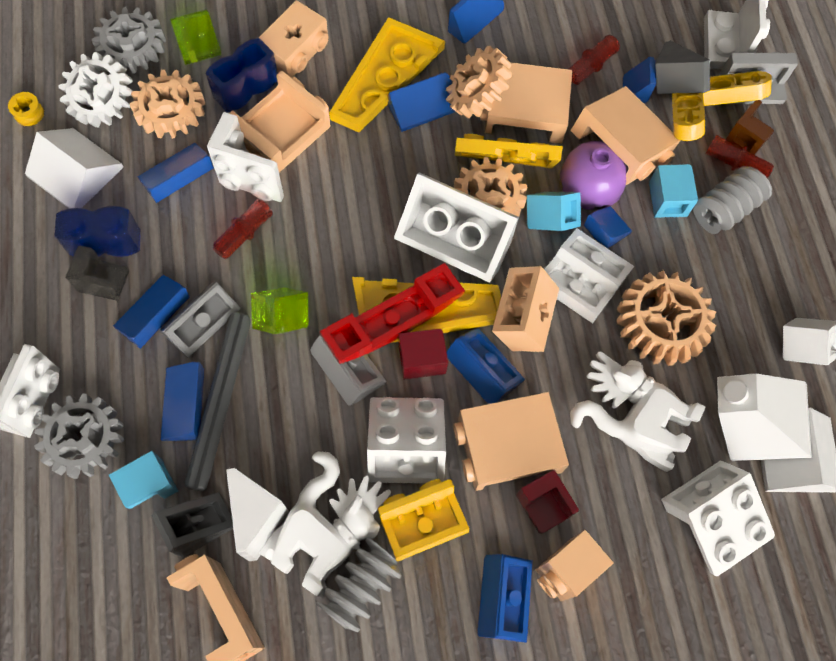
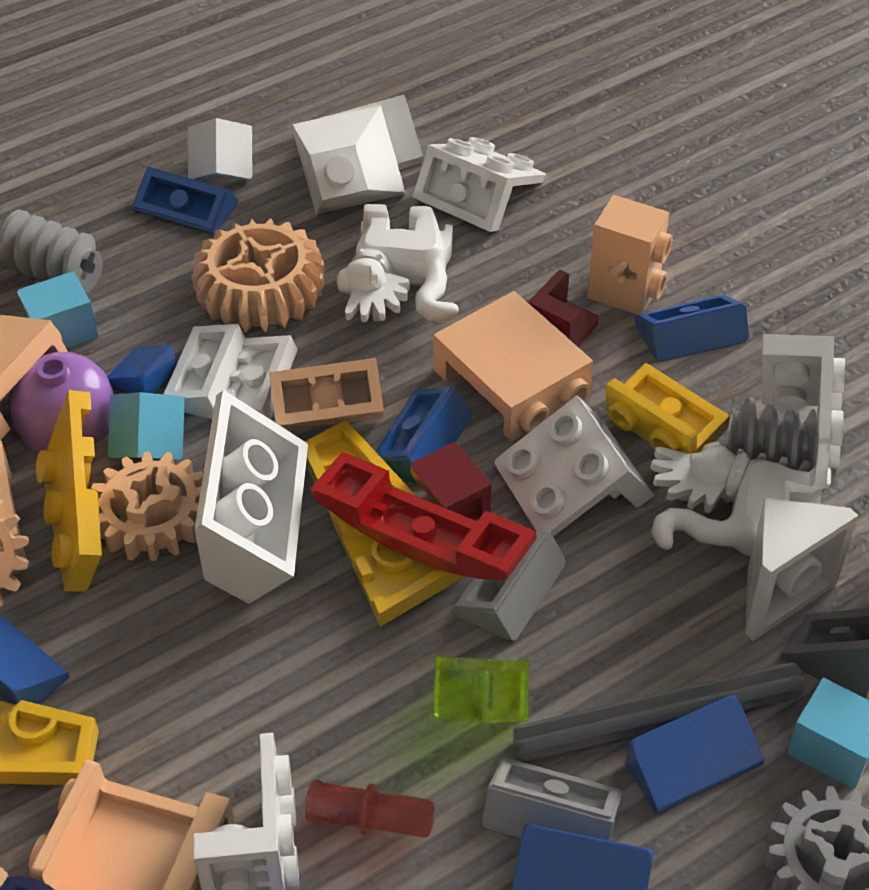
camera: 110 degrees left, 20 degrees down
(356, 586) = (805, 373): none -> white bracket
(770, 305) = (183, 200): none -> blue slope

